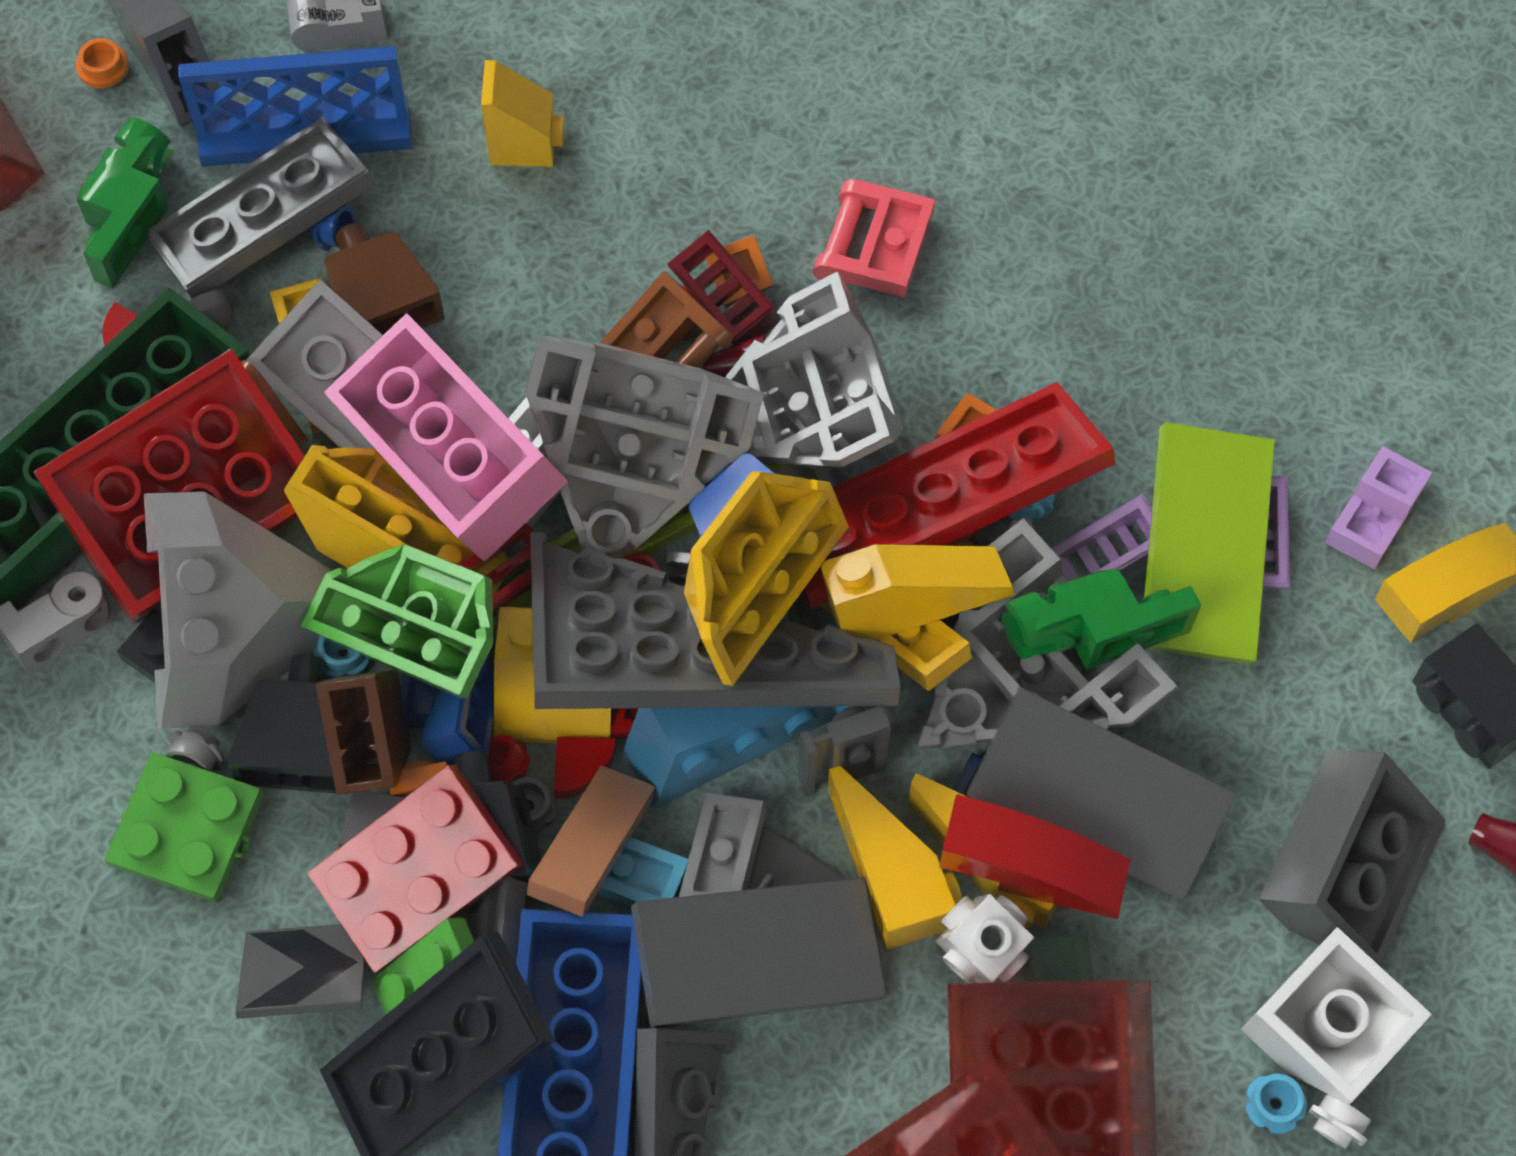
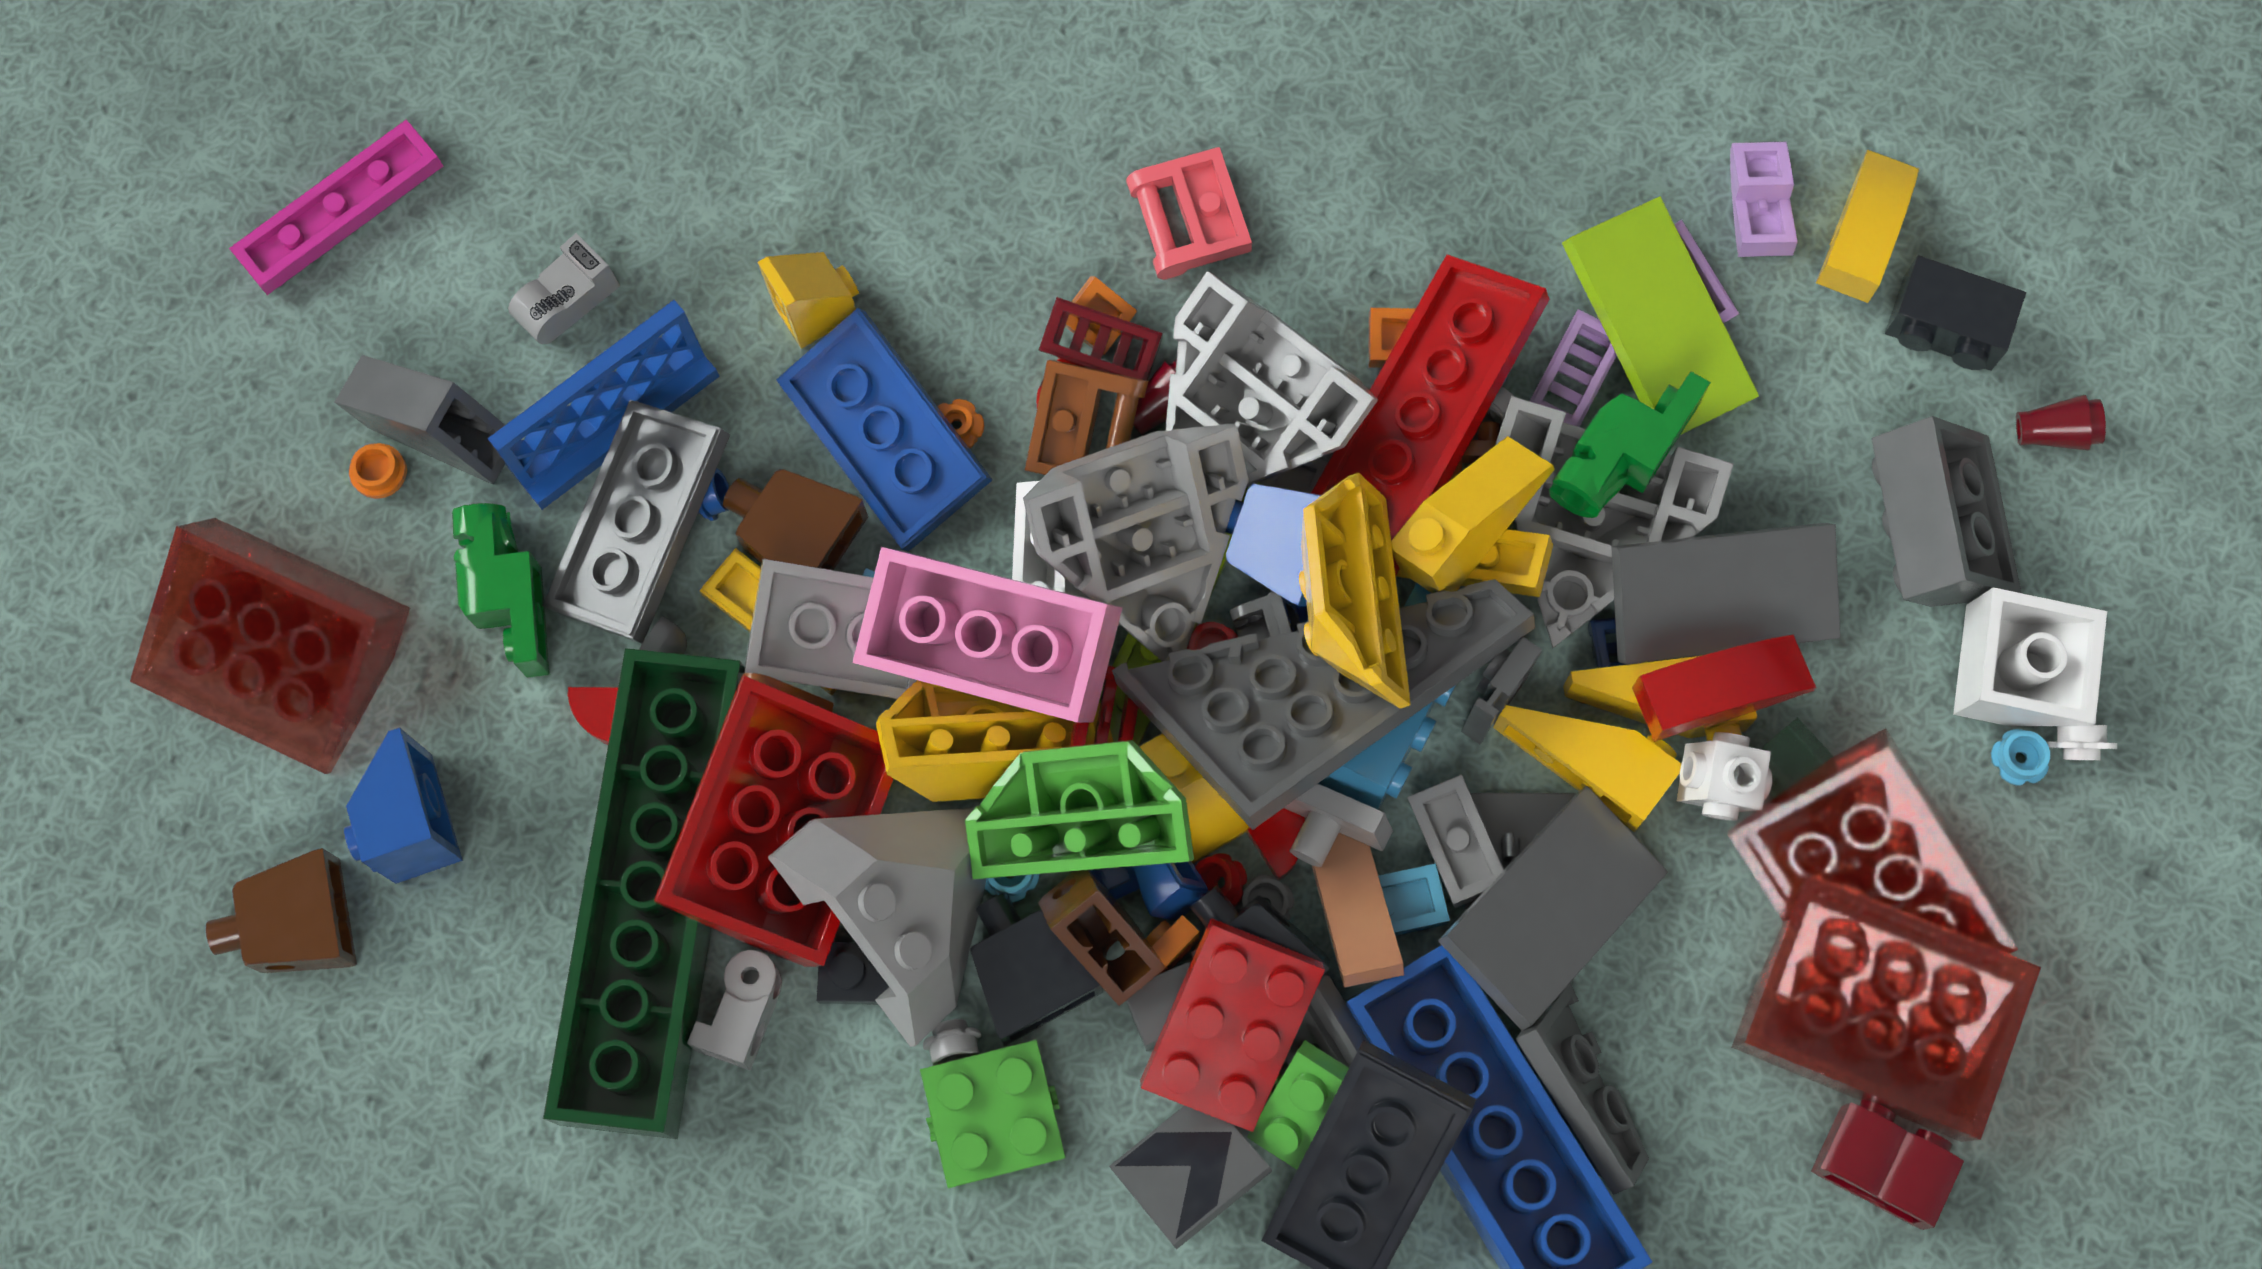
camera: 30 degrees left, 10 degrees up
(502, 257) = (884, 430): none -> blue tile
(564, 301) = (972, 423): none -> orange plate
(618, 758) = (1334, 813): none -> light grey tile

